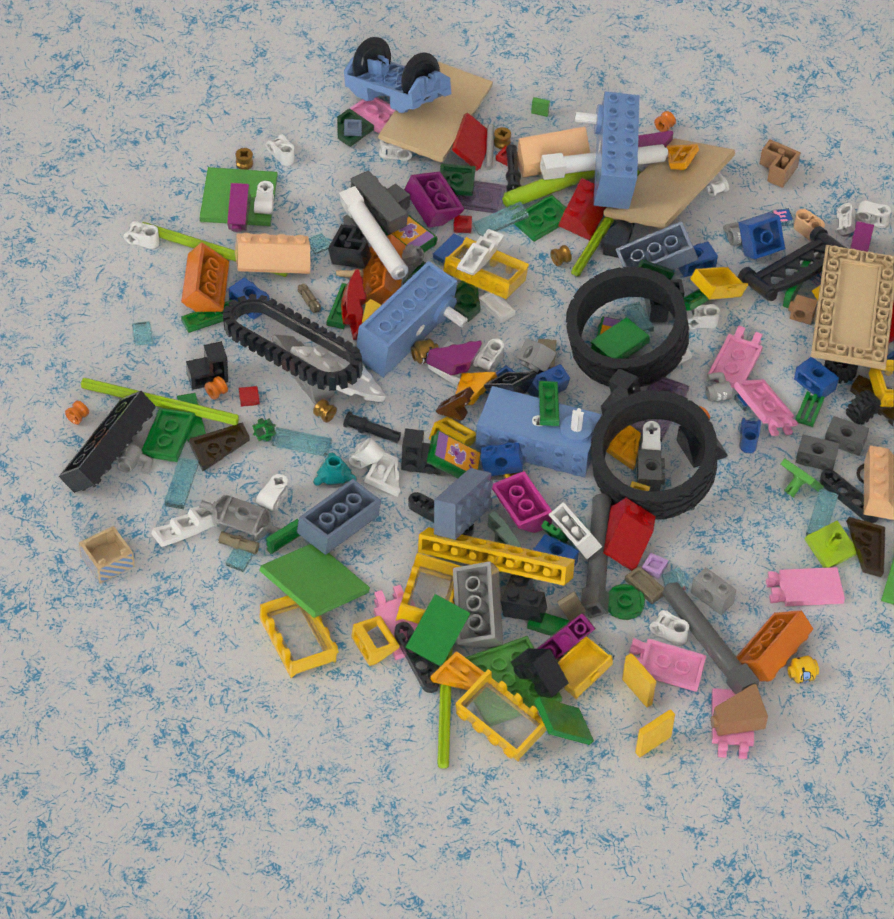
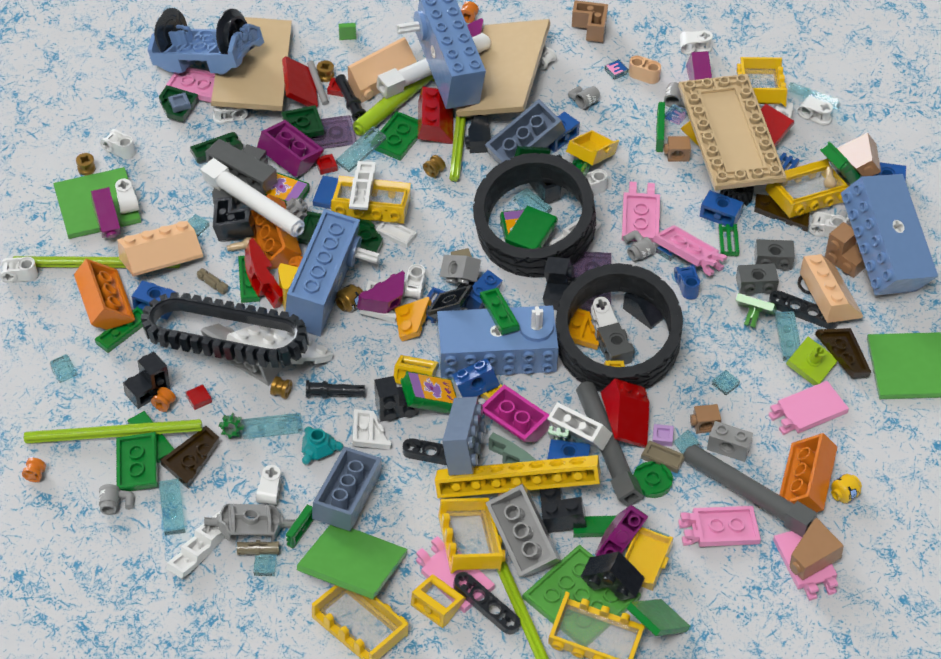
camera: 20 degrees left, 0 degrees up
(106, 554) = (131, 605): tan container -> none
(107, 442) = (81, 490): black brick -> none
(366, 454) = (343, 416): white piece -> none
(384, 176) = (198, 150): none -> dark green plate
(438, 630) = (499, 569): green tile -> none
(454, 406) = (403, 341): reddish brown slope -> none
(457, 672) = (536, 605): light orange wing -> none
(571, 606) = (608, 499): dark tan slope -> none
(639, 680) = (707, 551): yellow tile -> none
(655, 733) = (747, 598): yellow tile -> none
(670, 628) = (709, 490): white piece -> none
(681, 155) = (503, 39): light orange wing -> none
(700, 560) = (704, 418): none -> medium nougat brick
(739, 538) = (725, 382): none -> clear light blue tile
(761, 280) = (629, 134): black piece -> none
(762, 235) = (610, 91): blue brick -> none
(846, 220) = (675, 55): white piece -> none
(863, 407) = (778, 223): black tyre -> none

